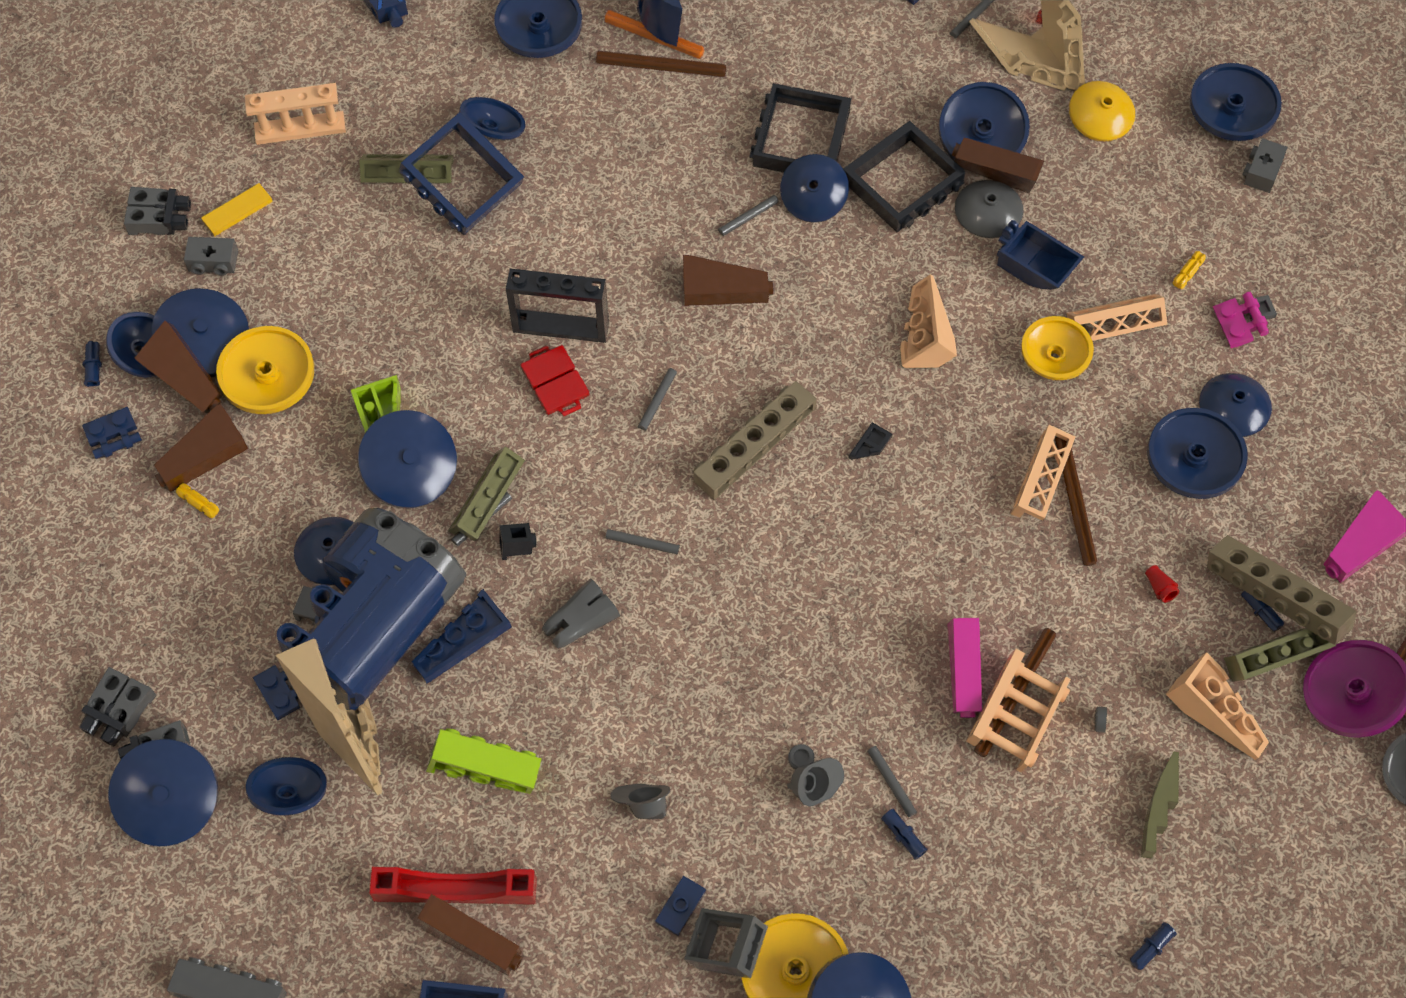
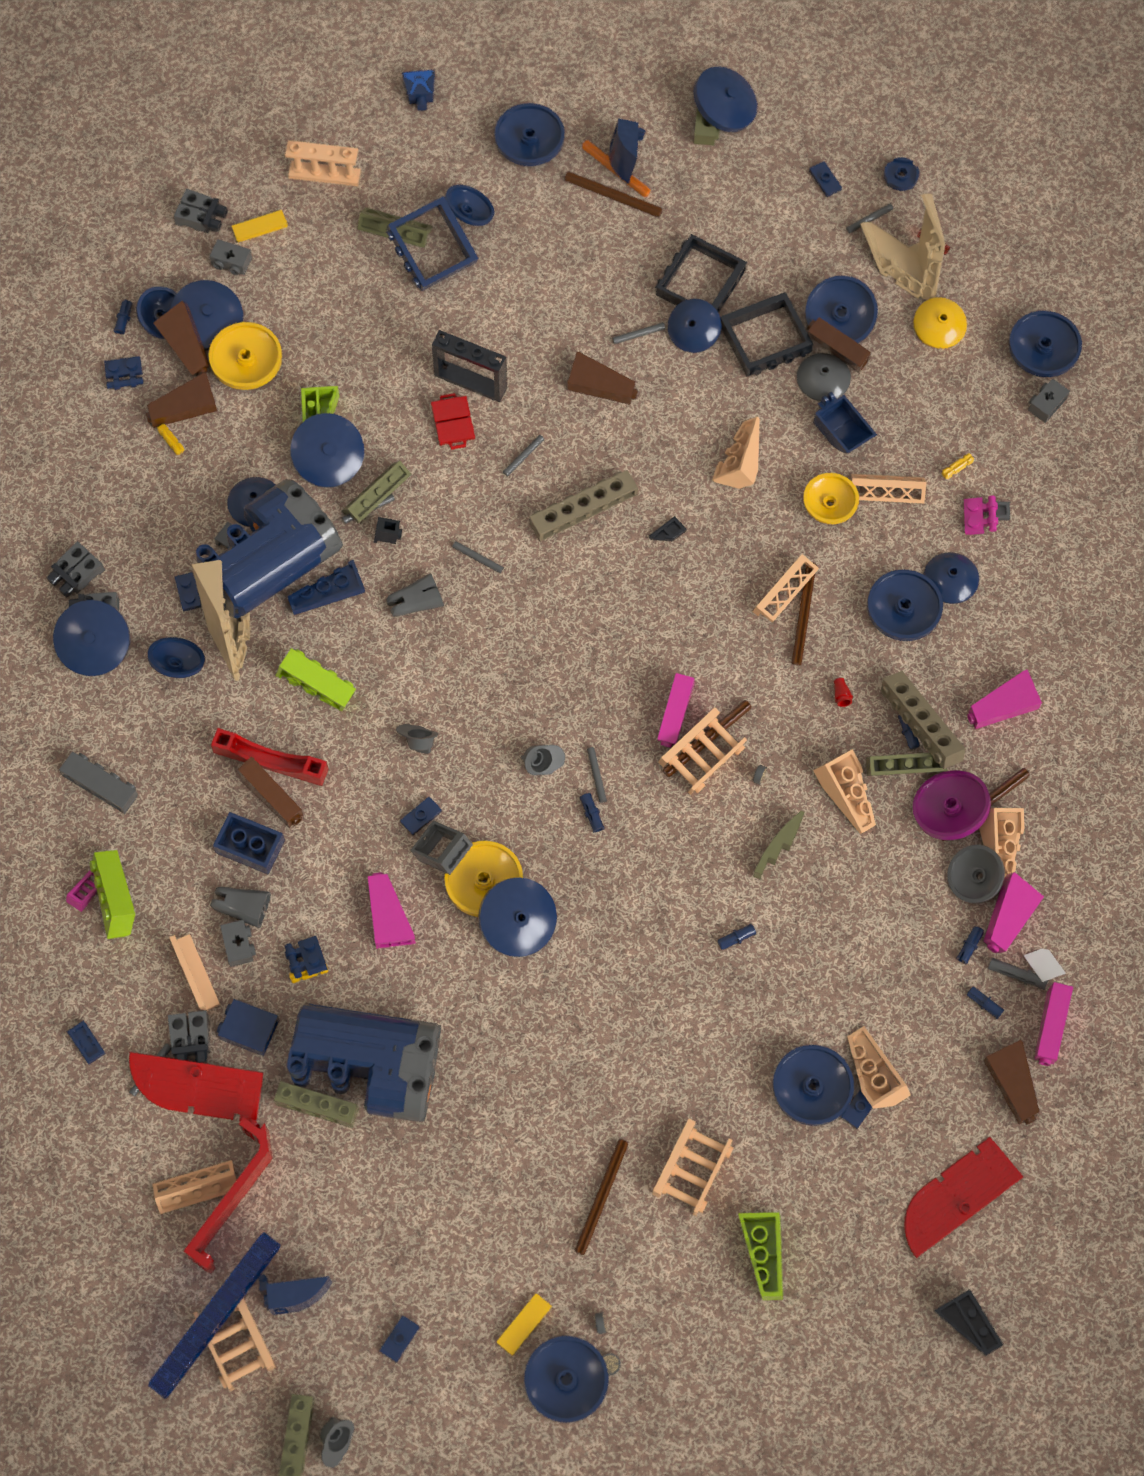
camera: 15 degrees right, 5 degrees up
(800, 755) = (538, 738): dark grey tile -> none

